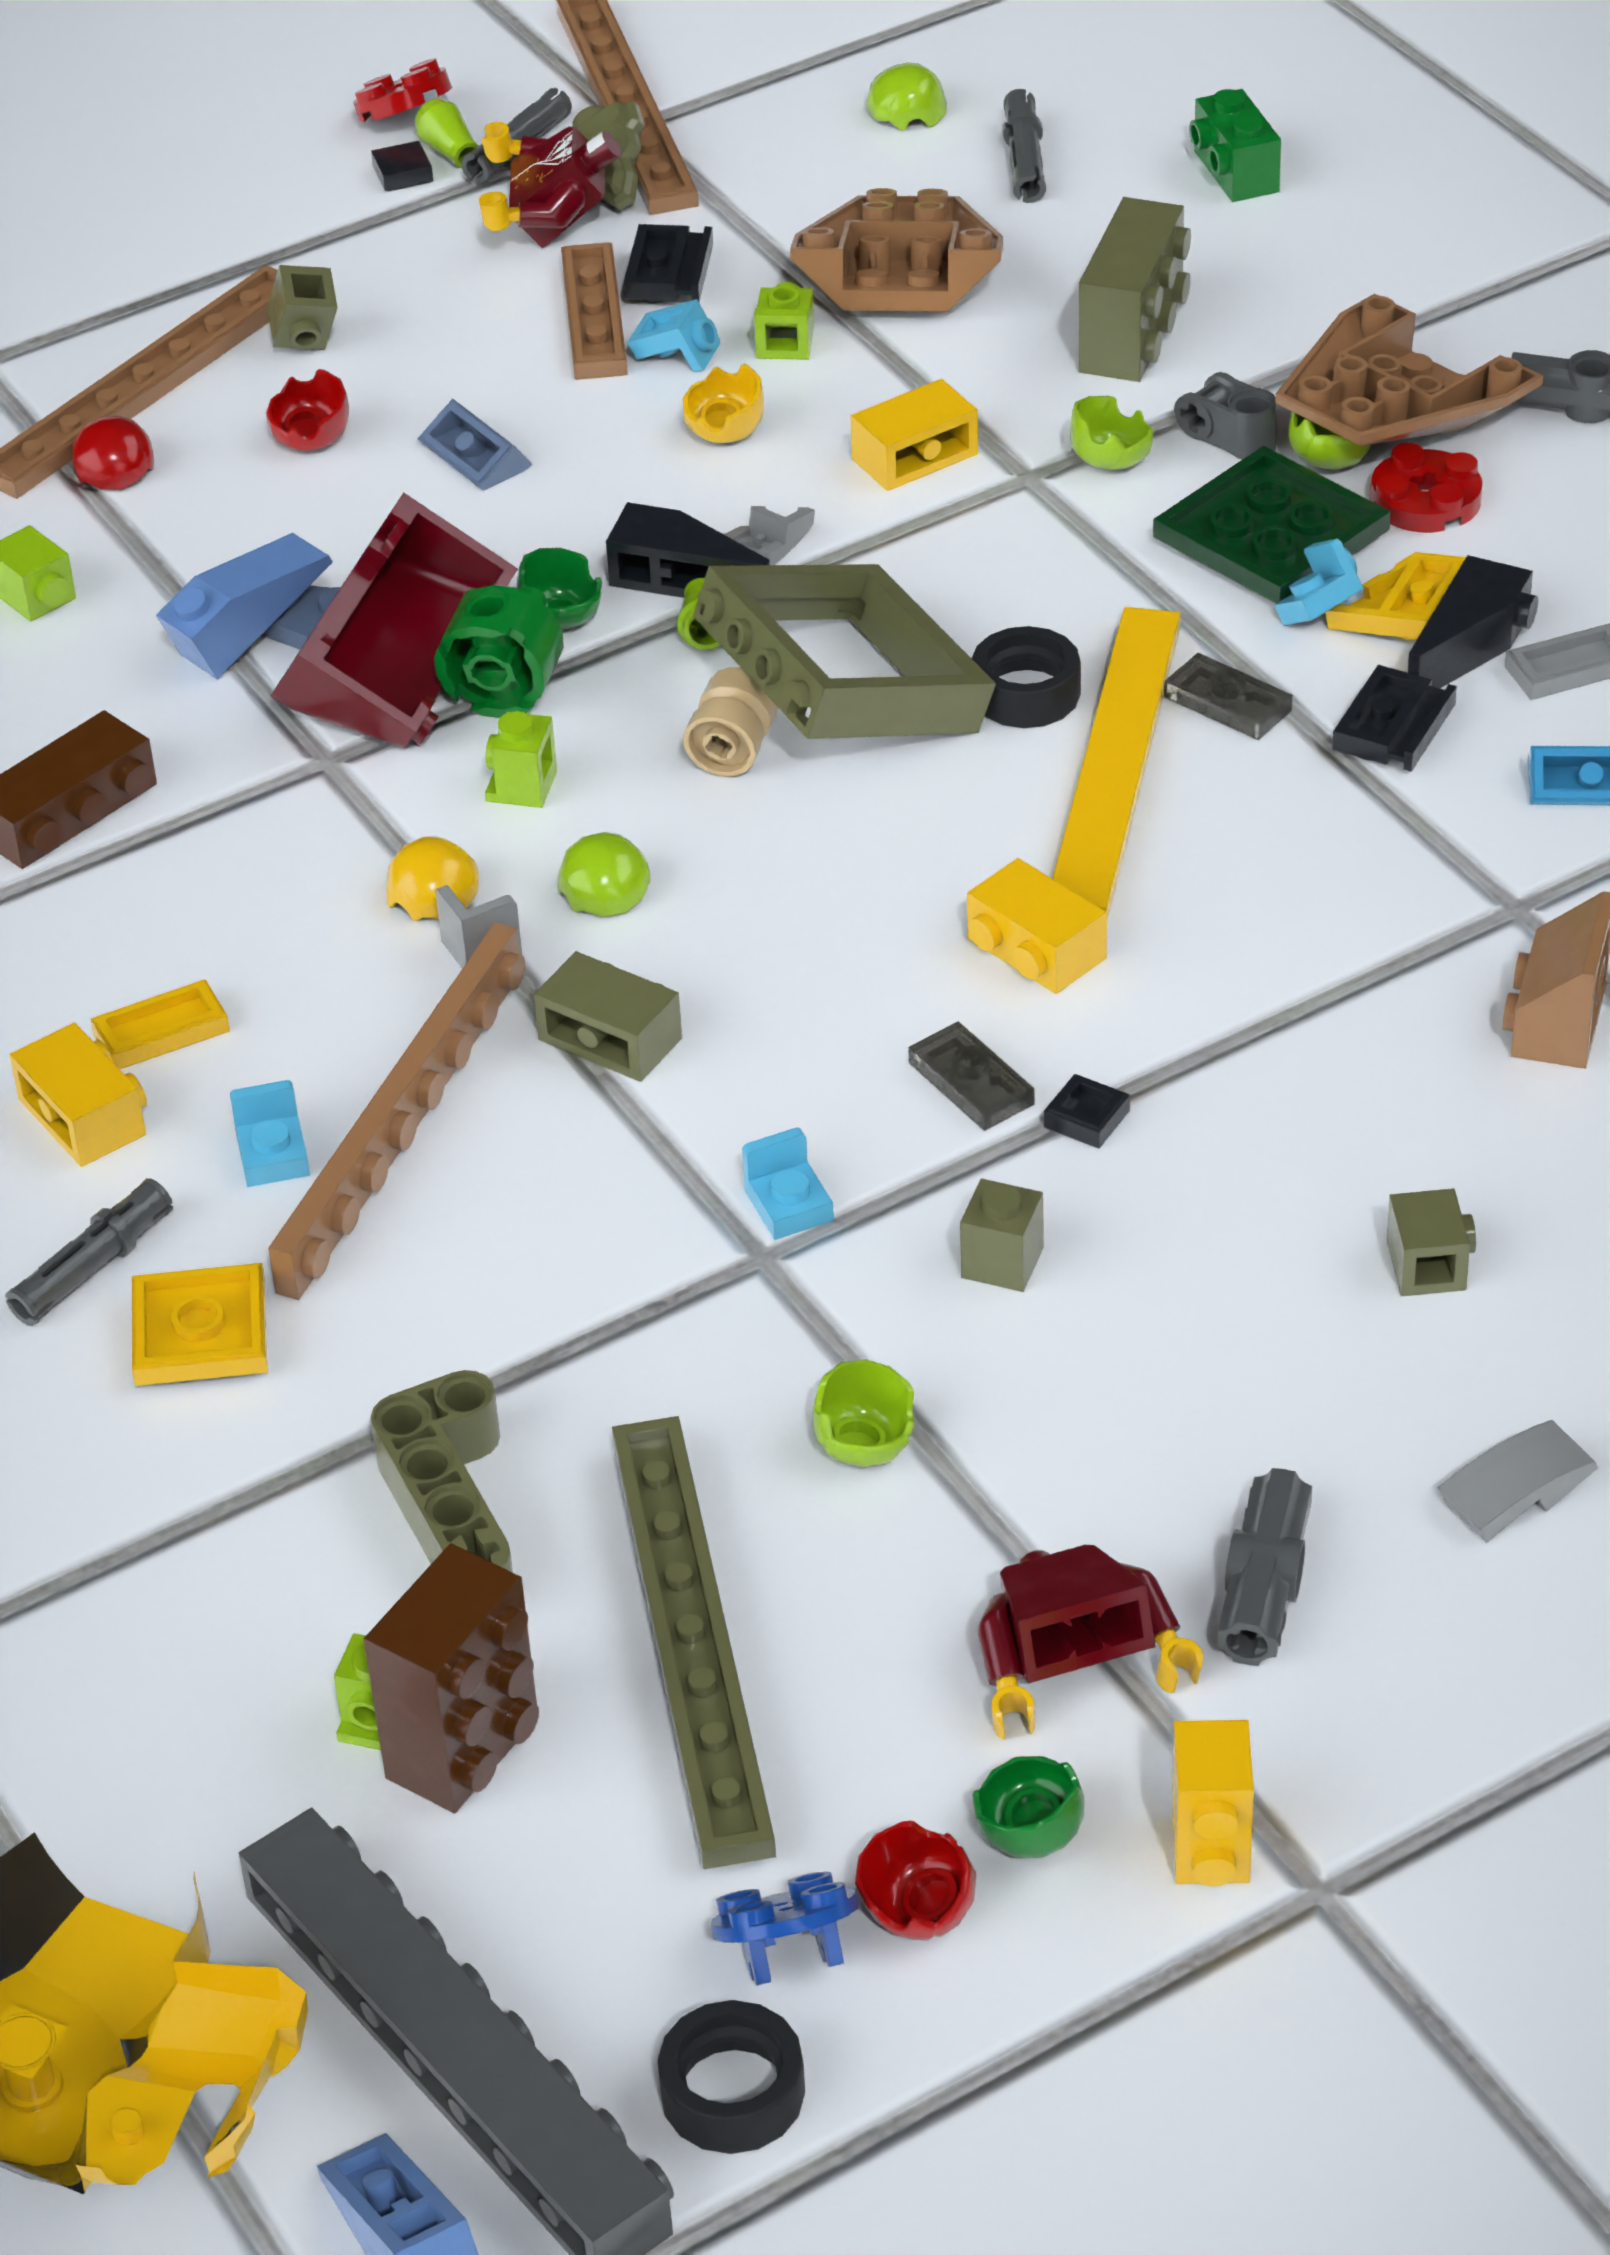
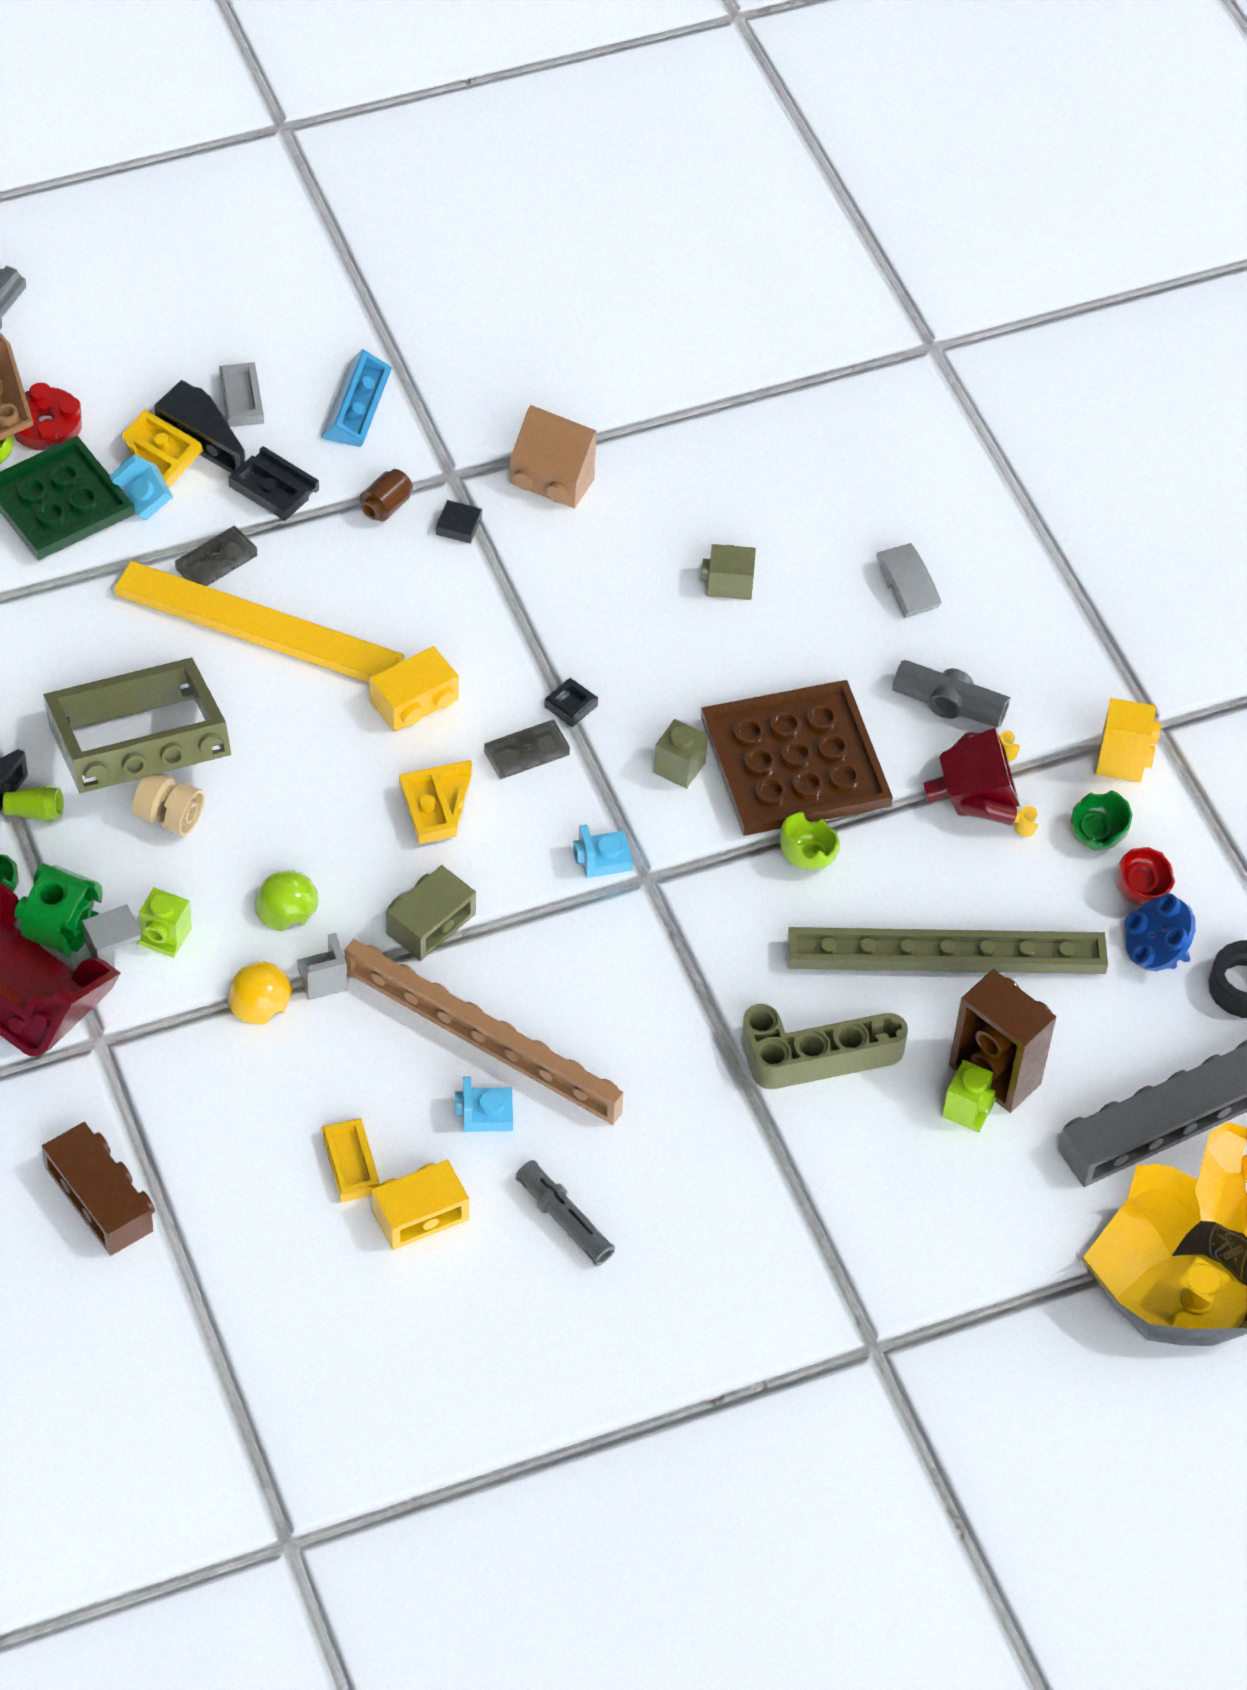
camera: 85 degrees left, 10 degrees up
(199, 1324) = (645, 1160): yellow plate -> none
(473, 710) = (110, 932): none -> light grey panel
(830, 989) = (436, 799): none -> yellow wing
(1032, 650) = (165, 627): black tyre -> none
(1055, 1386) = (795, 756): none -> reddish brown plate
(1412, 925) = (459, 521): none -> black tile
(1418, 830) = (386, 495): none -> reddish brown brick

